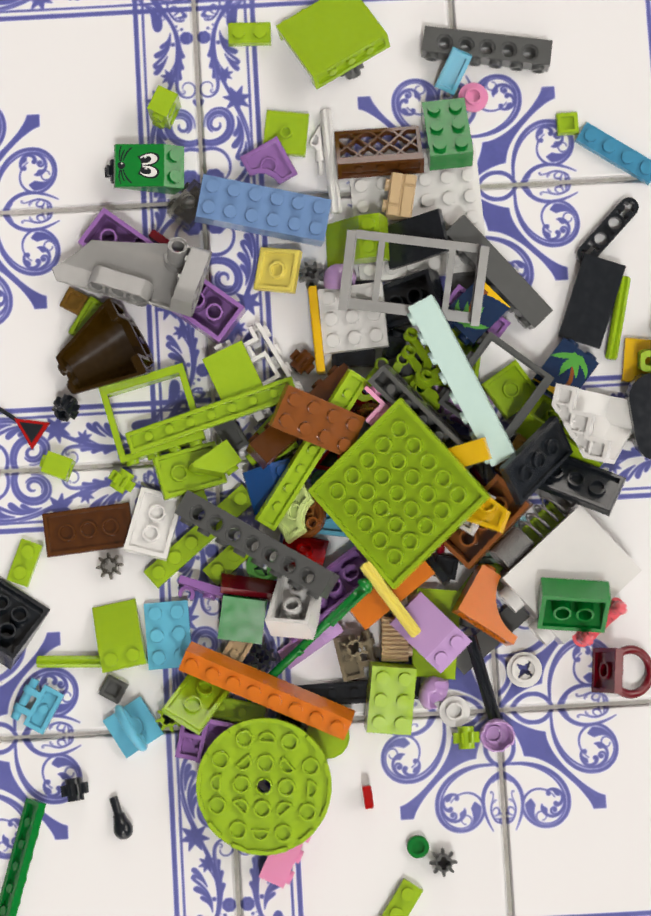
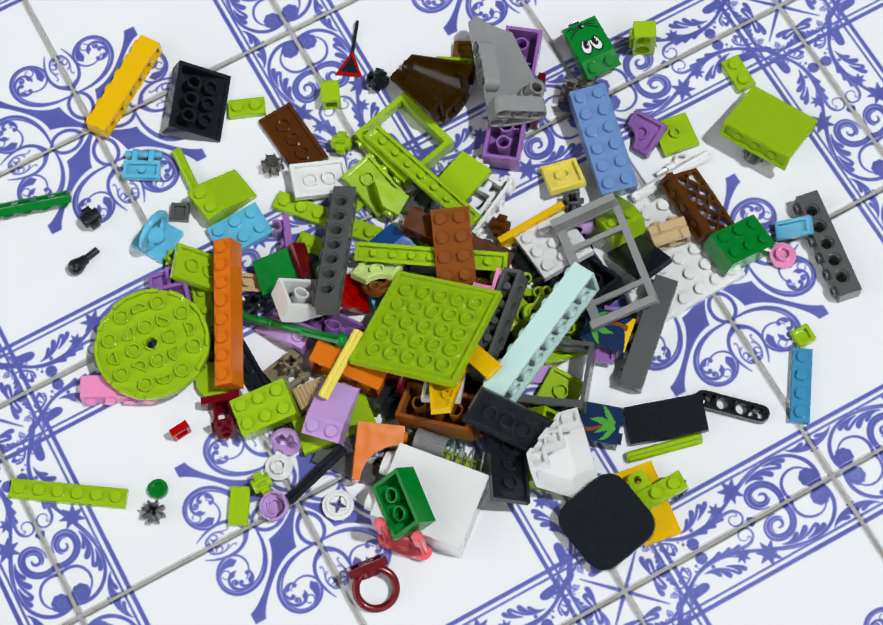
camera: 70 degrees right, 15 degrees down
(358, 741) = (220, 404): none -> dark red tile
(476, 770) = (239, 506): none -> lime tile

